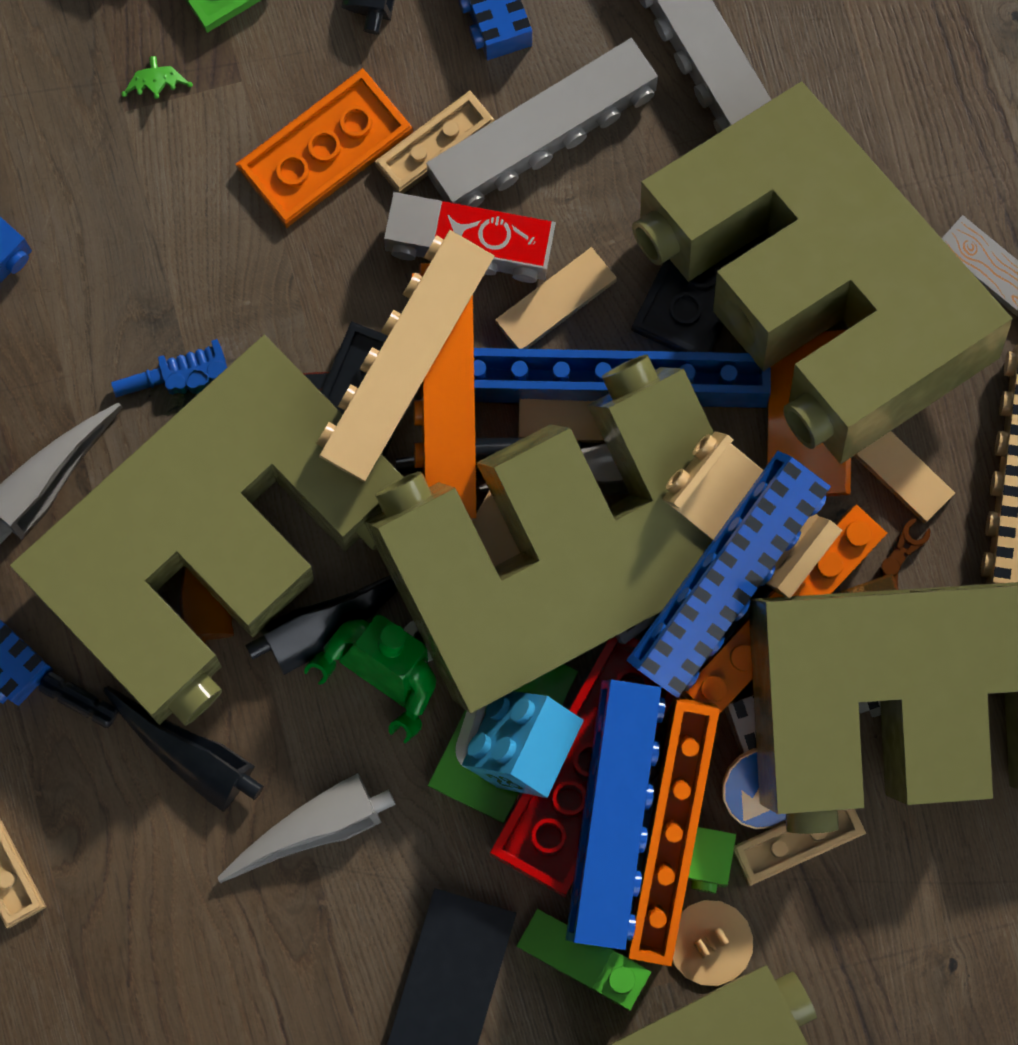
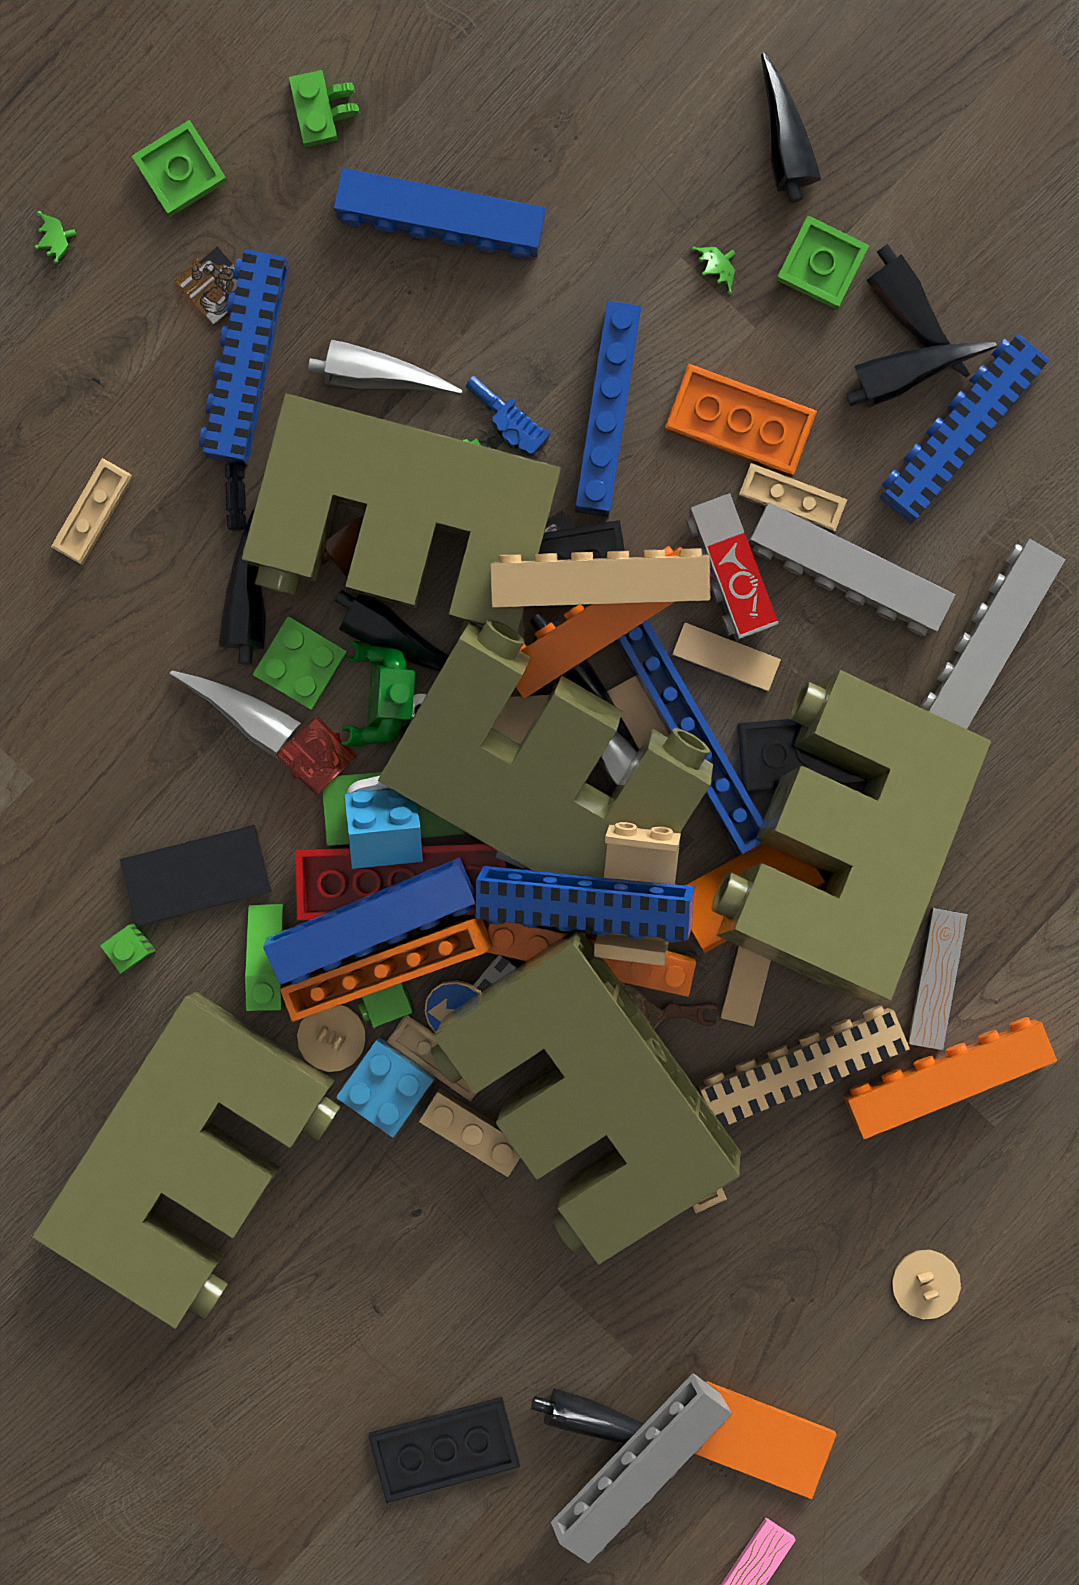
camera: 55 degrees right, 10 degrees up
(232, 267) = (608, 409): none -> blue brick
(294, 737) = (300, 663): none -> bright green plate
(402, 775) = (316, 755): none -> clear red piece
(798, 912) = (385, 1087): none -> dark azure brick
(900, 847) = (470, 1131): none -> tan brick

